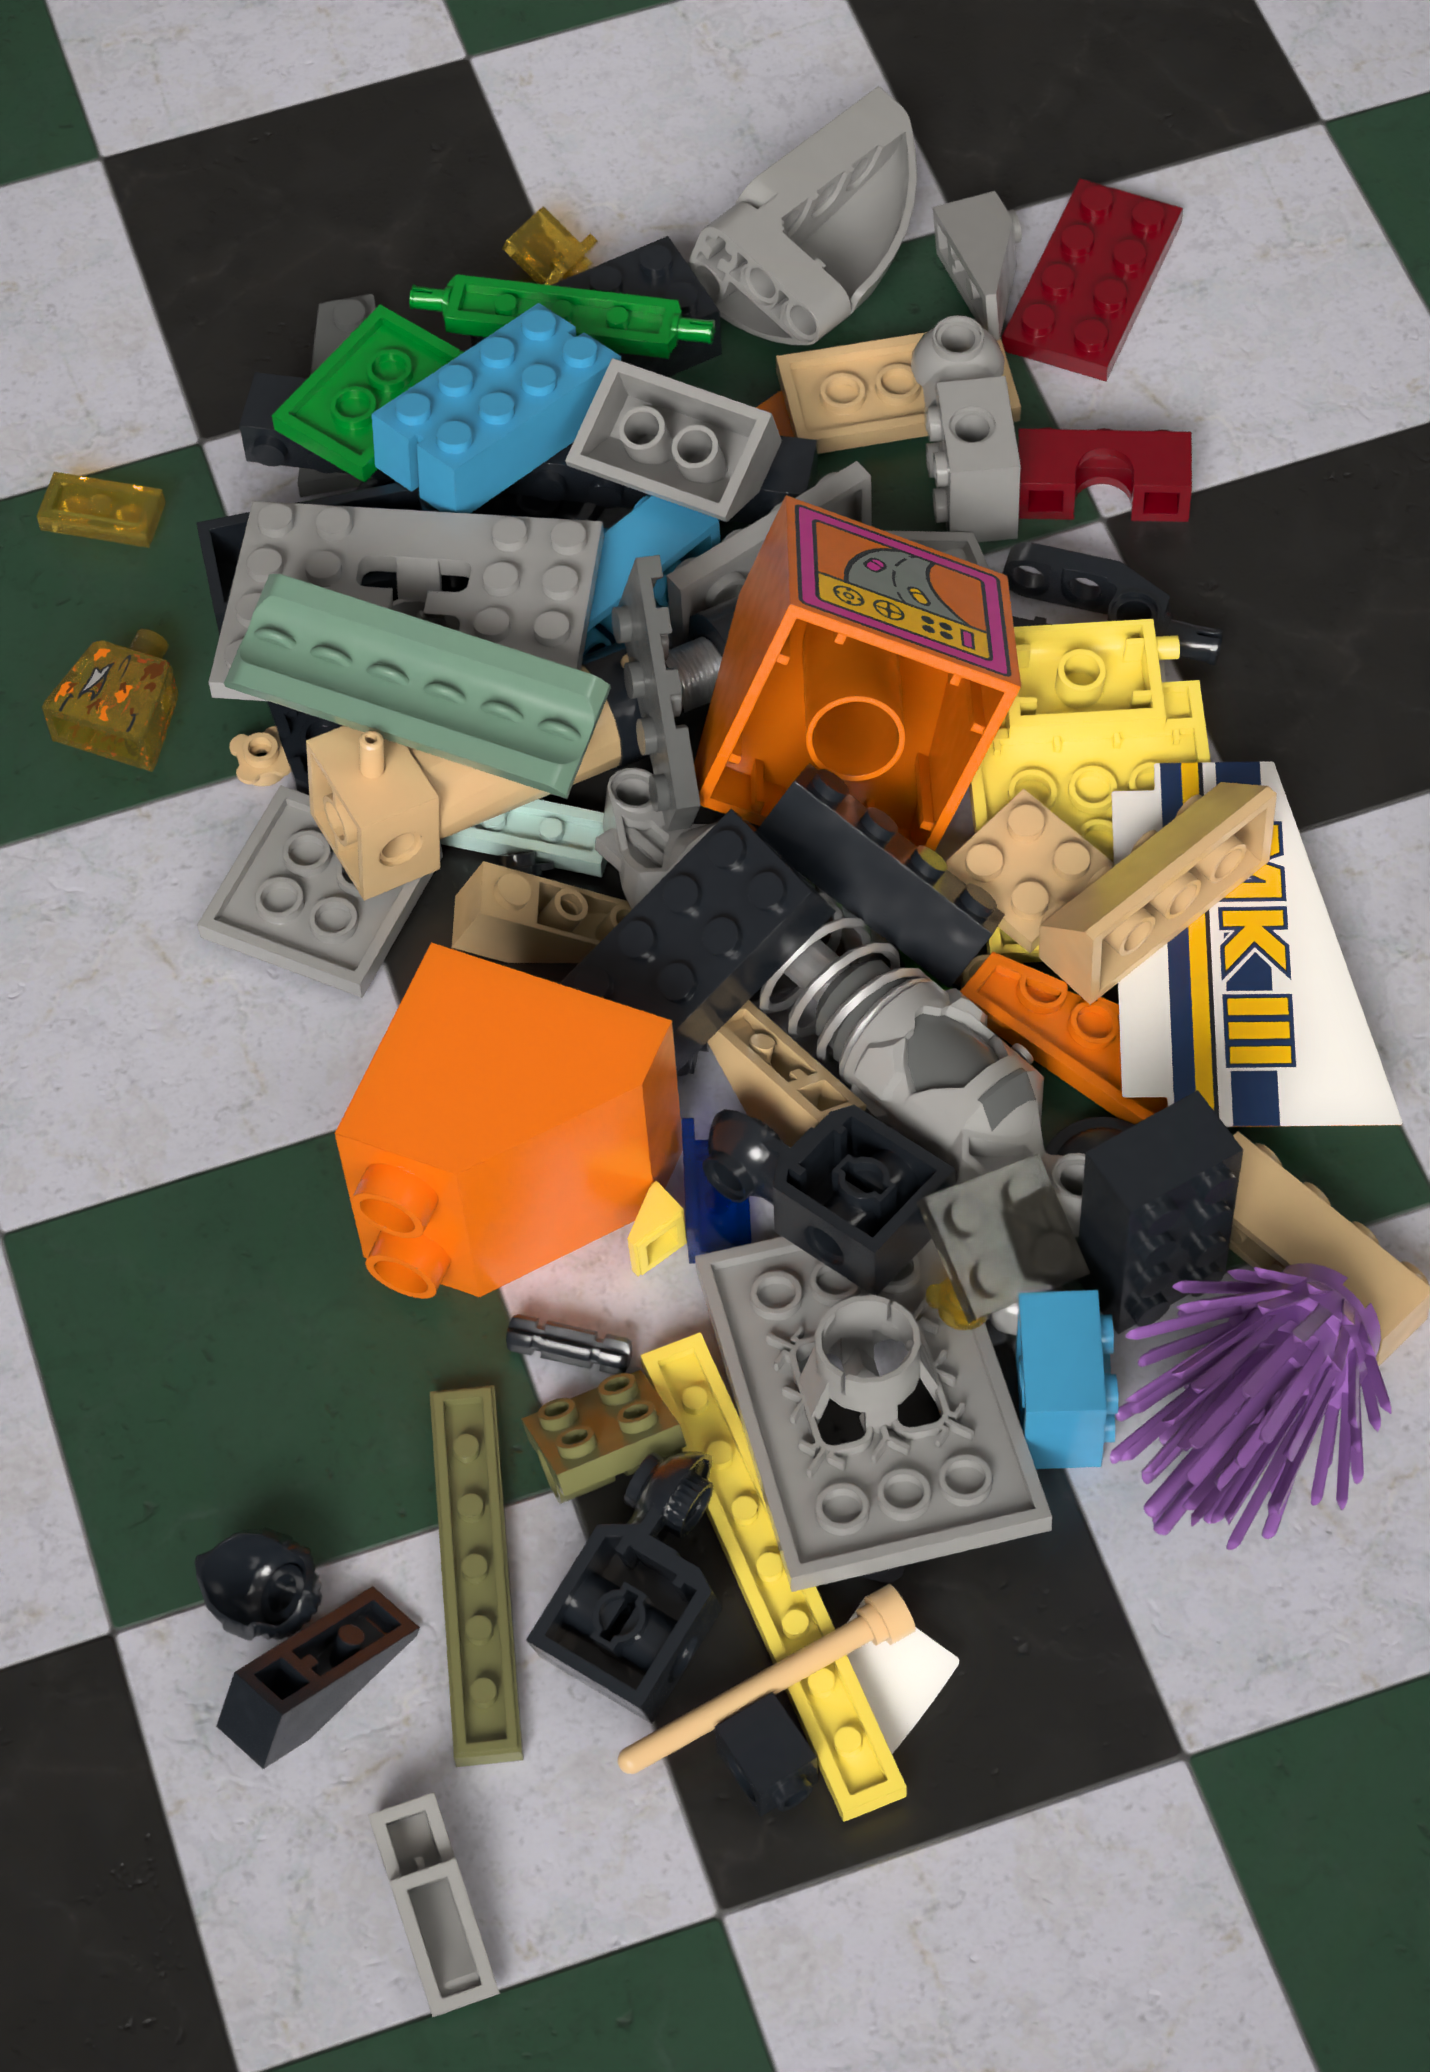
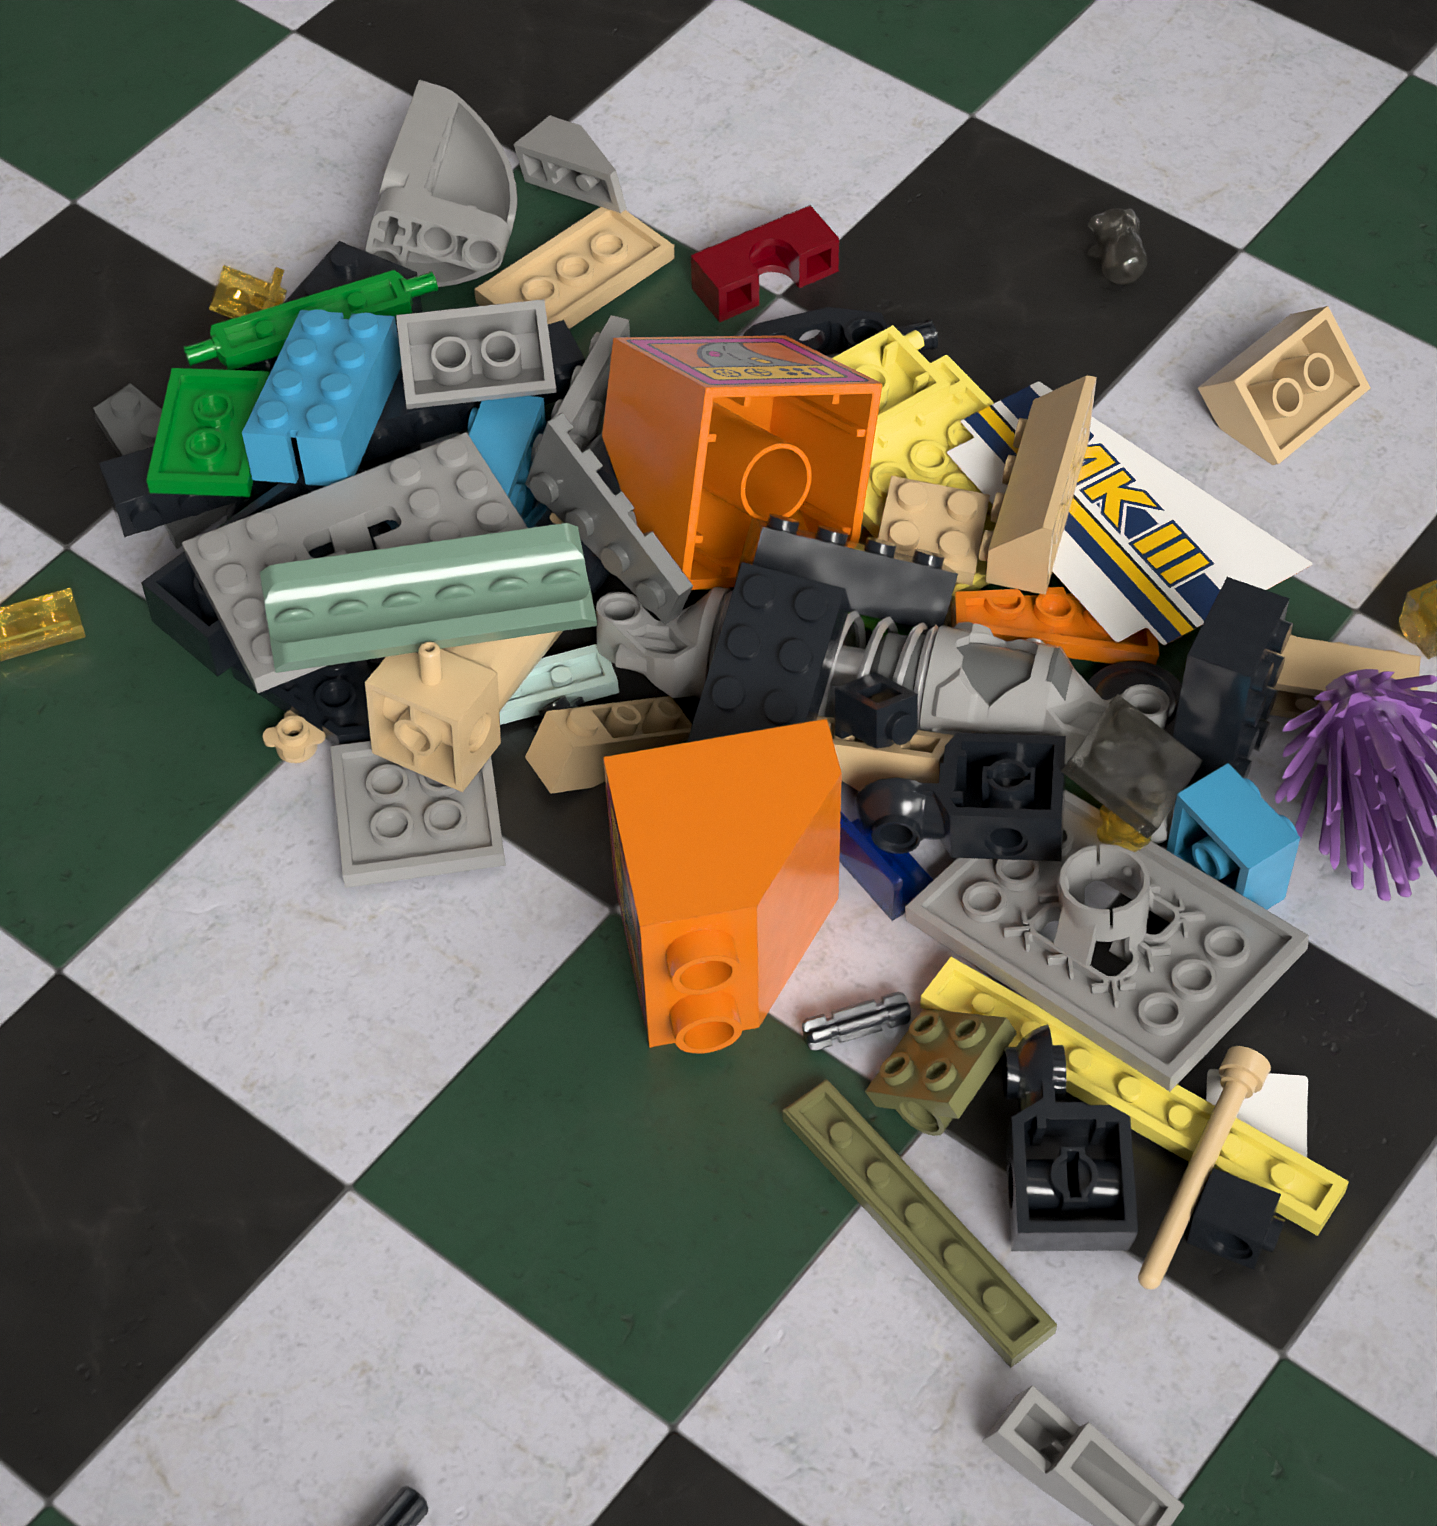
camera: 35 degrees left, 5 degrees down
(116, 701) = (149, 753): clear yellow torso -> none
(259, 1584) = (774, 1317): black hair -> none
(312, 1676) = (863, 1363): black slope -> none
(656, 1231) = (860, 903): light yellow slope -> none
(787, 1054) = (876, 711): none -> black brick
(972, 429) = (661, 267): light grey brick -> none
(1092, 280) = (652, 148): dark red plate -> none

